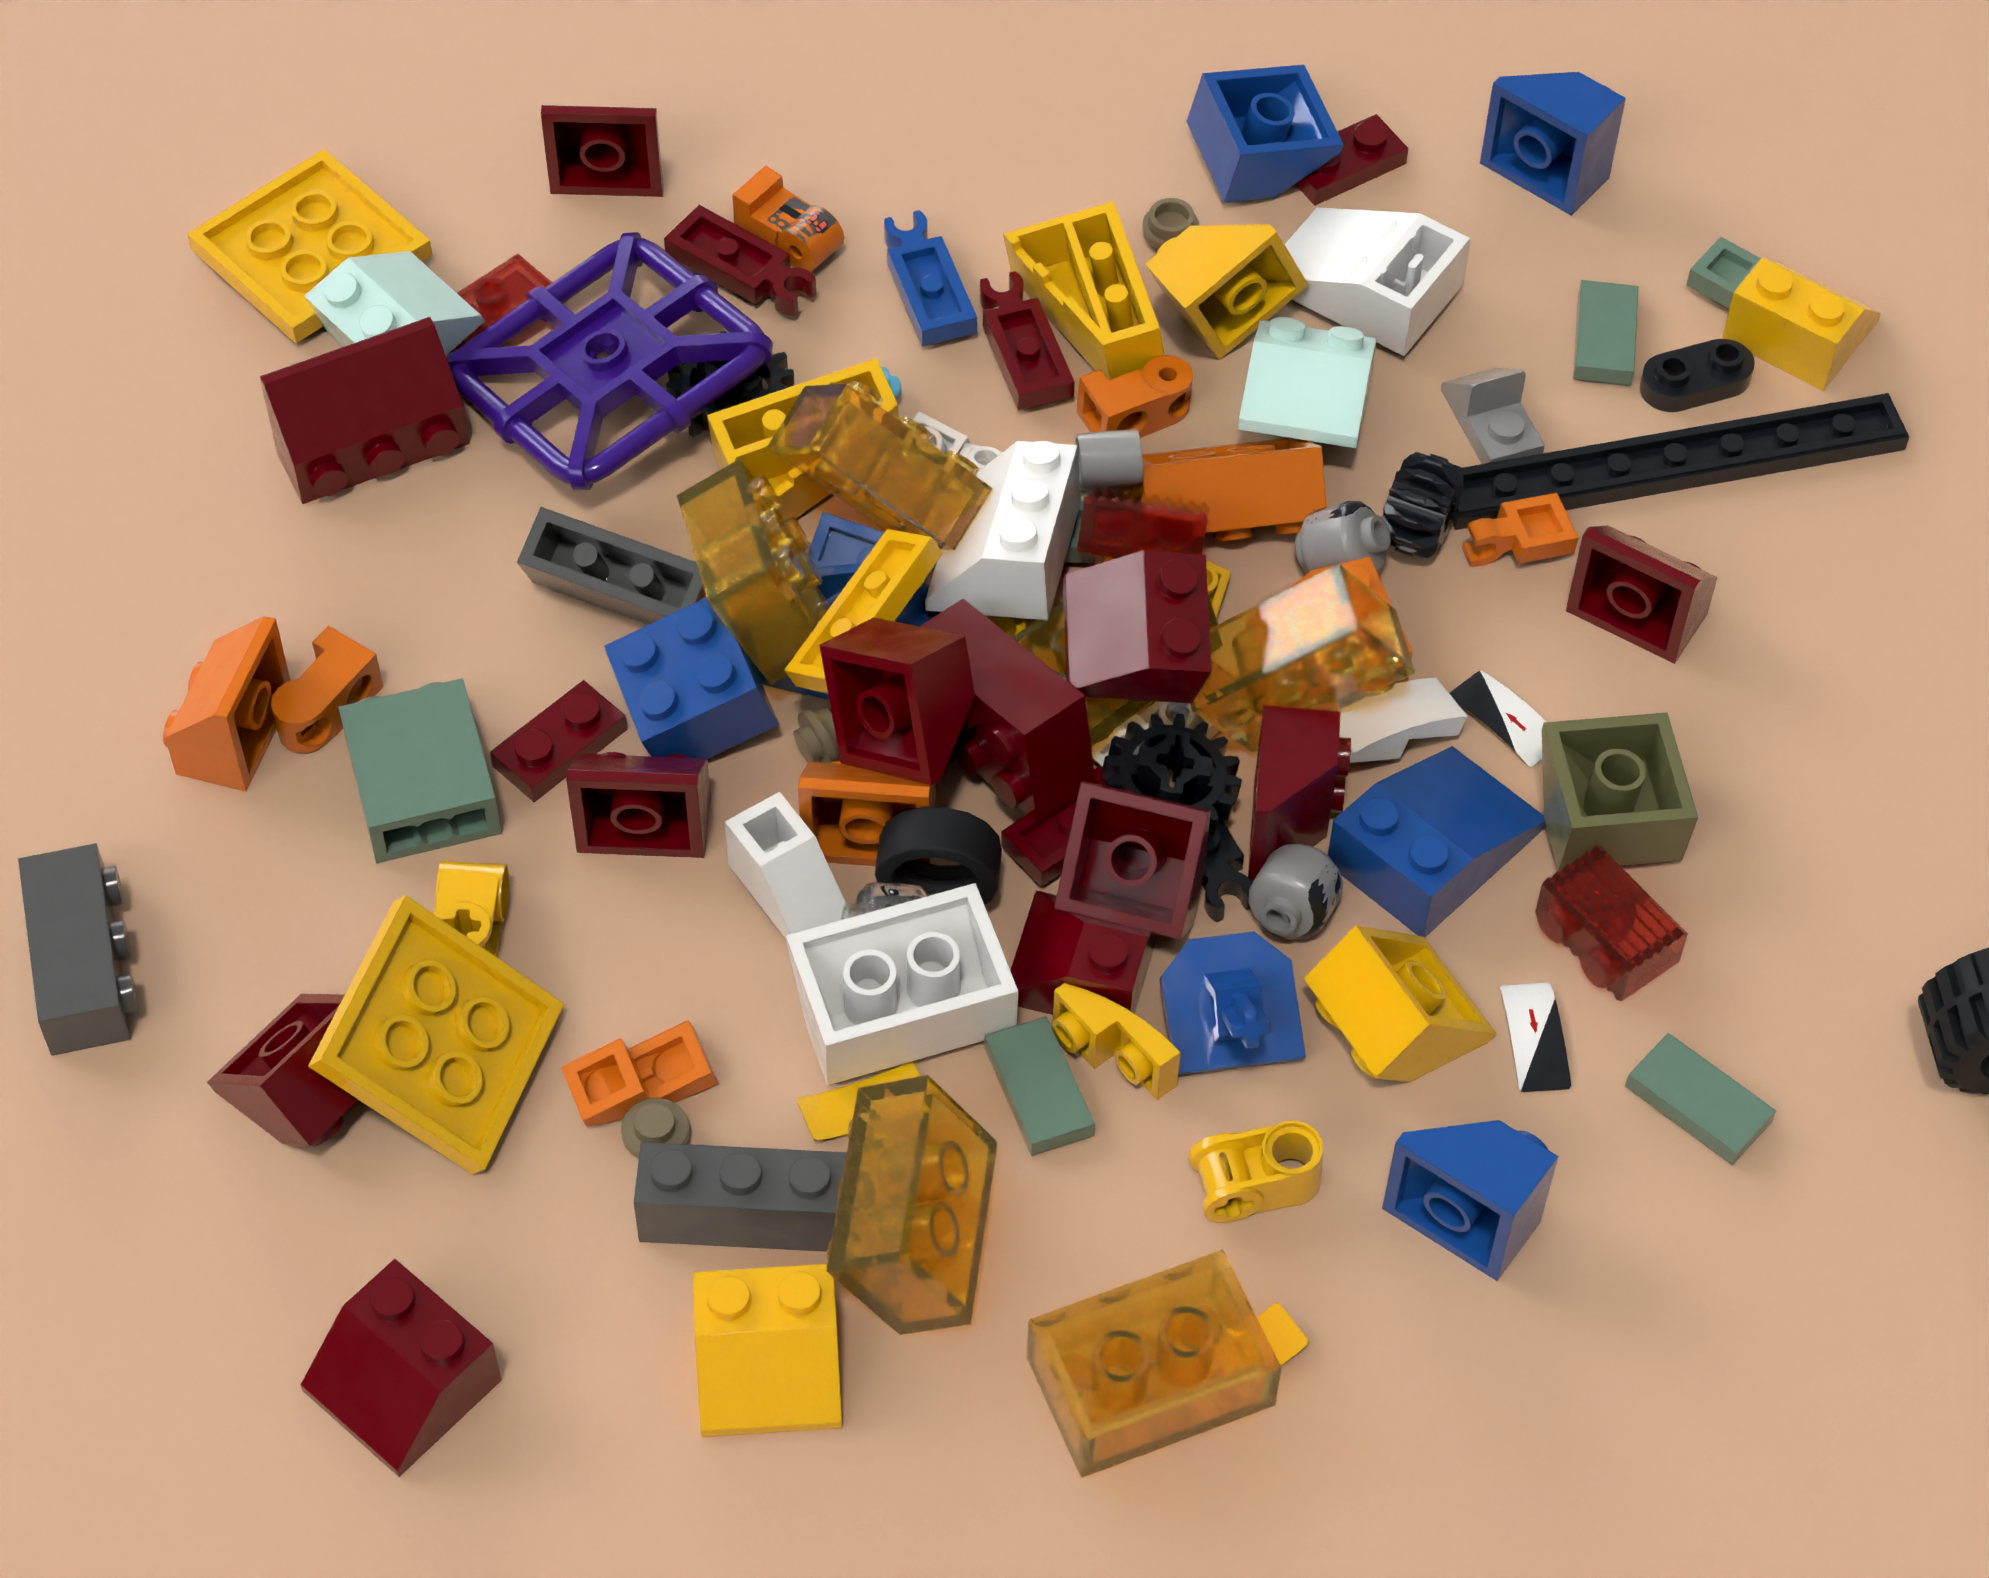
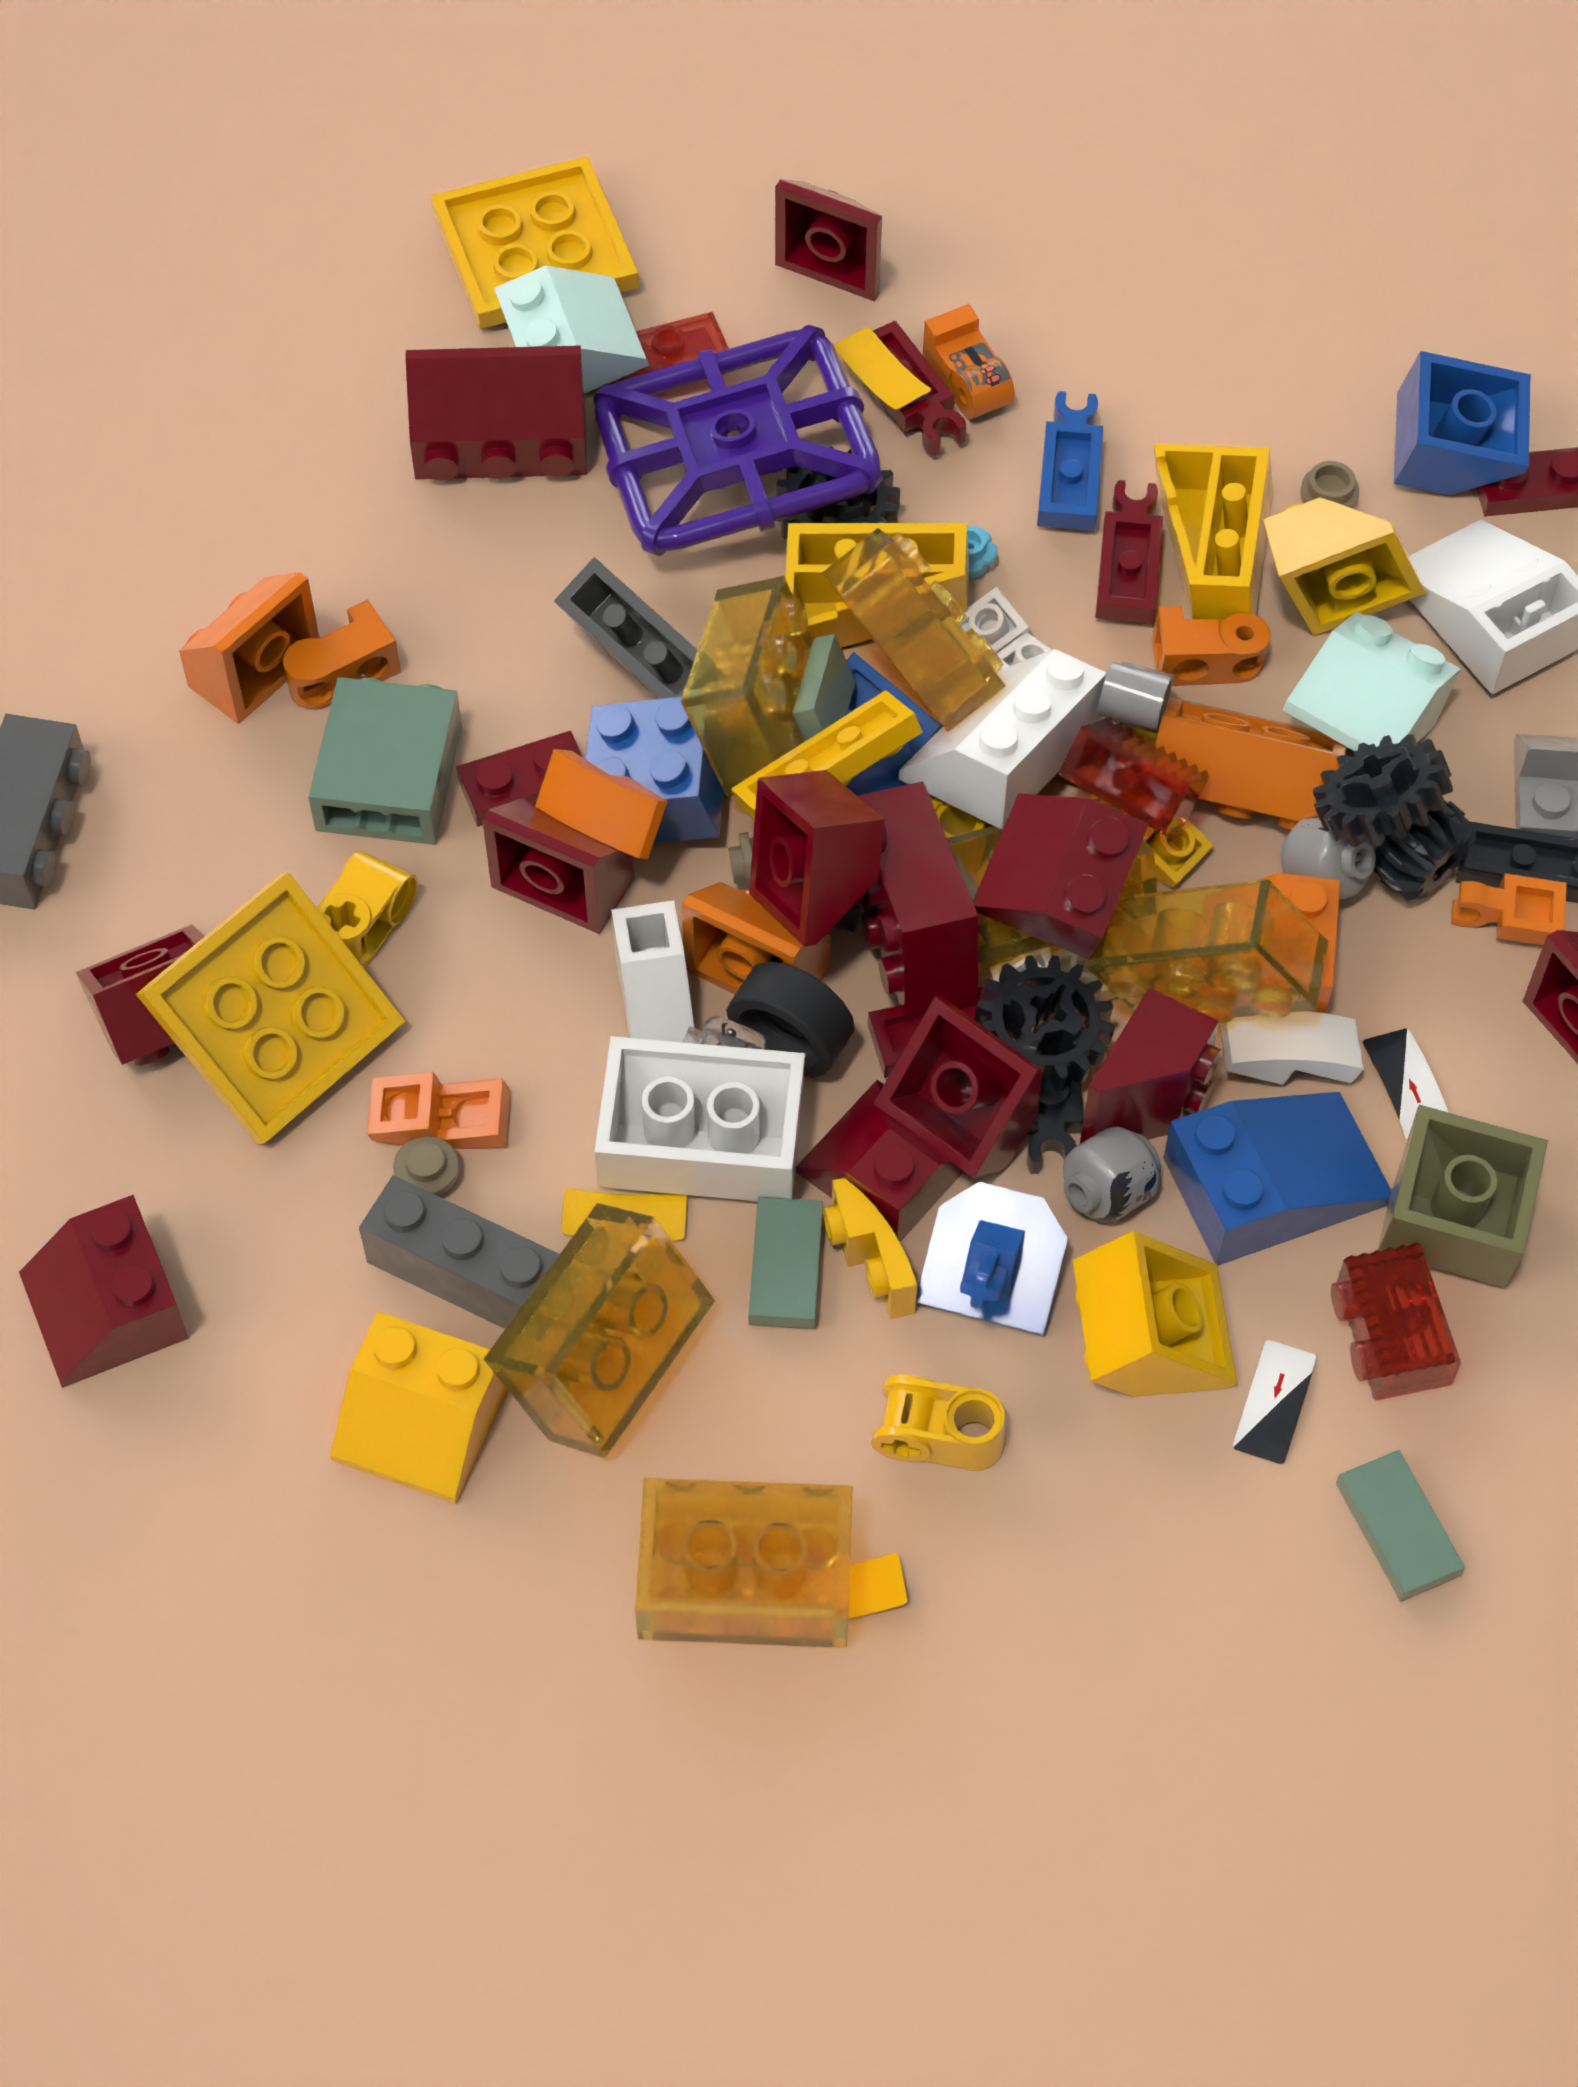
camera: 25 degrees right, 5 degrees up
(666, 728) = (601, 804): none -> orange slope
(710, 253) = (880, 369): none -> yellow sticker
(819, 550) = (824, 687): none -> sand green tile
(1376, 461) = (1382, 790): none -> black gear
(1471, 1189) = (1123, 1525): blue slope -> none

